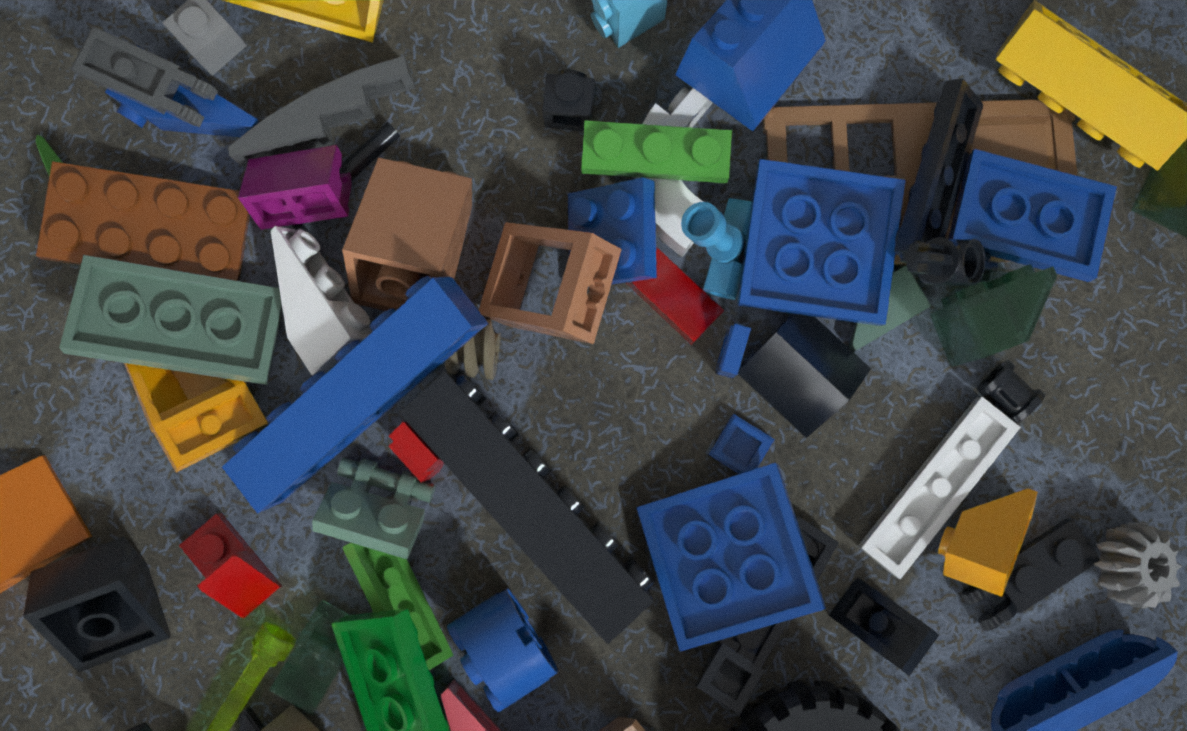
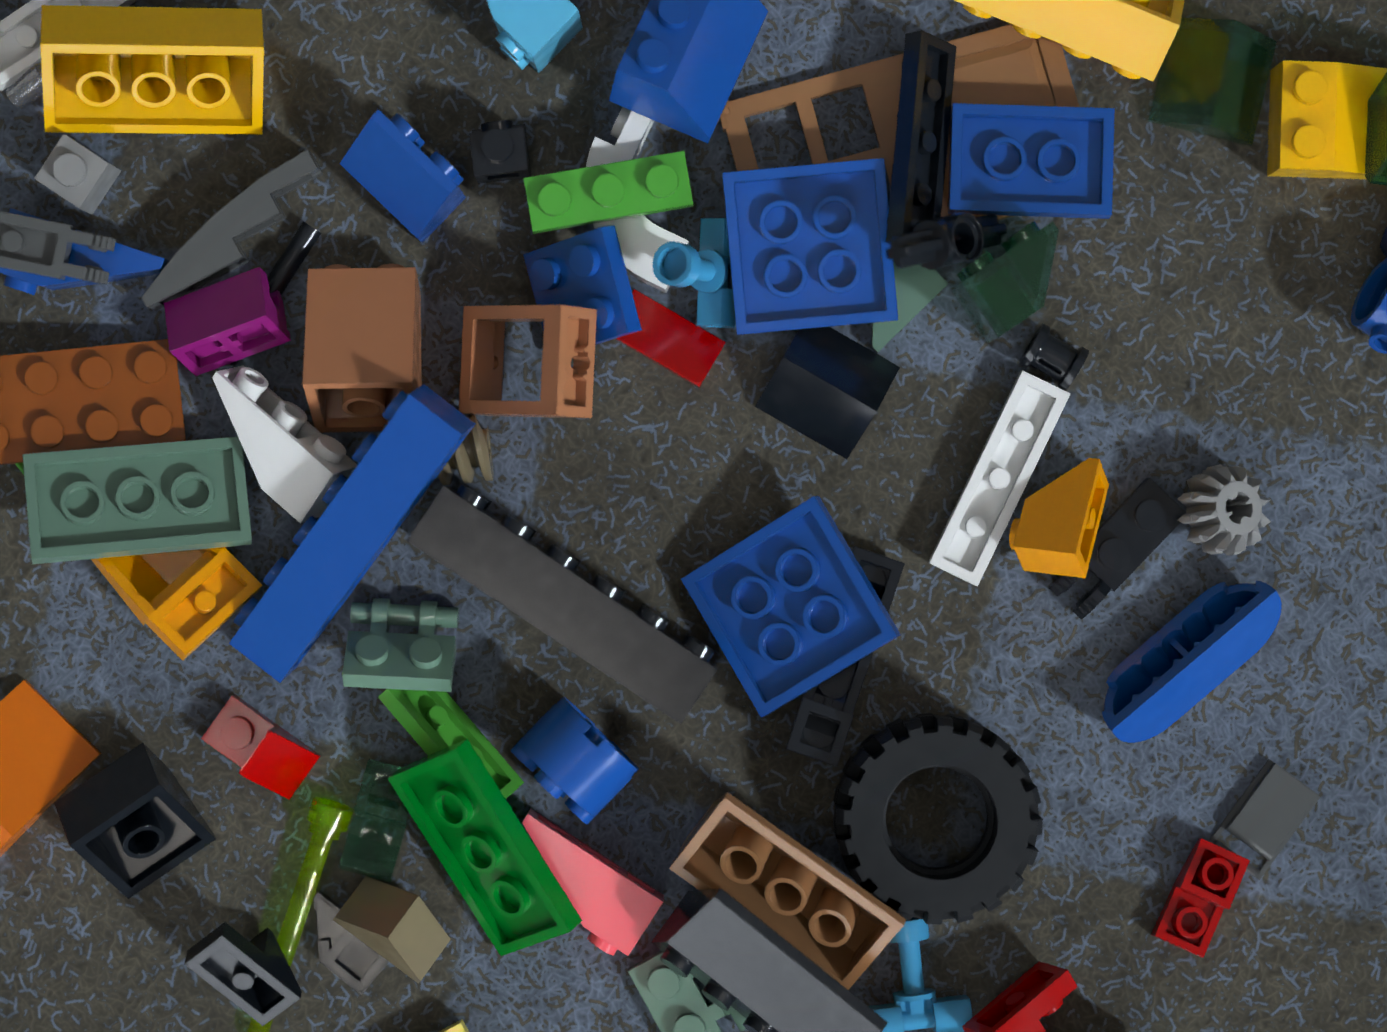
camera: 15 degrees left, 5 degrees up
(415, 452) = (431, 578): red slope -> none
(480, 97) = (401, 177): none -> blue slope
(732, 350) = (743, 385): blue tile -> none
(740, 446) = (777, 485): blue tile -> none
(884, 626) = (969, 639): black slope -> none

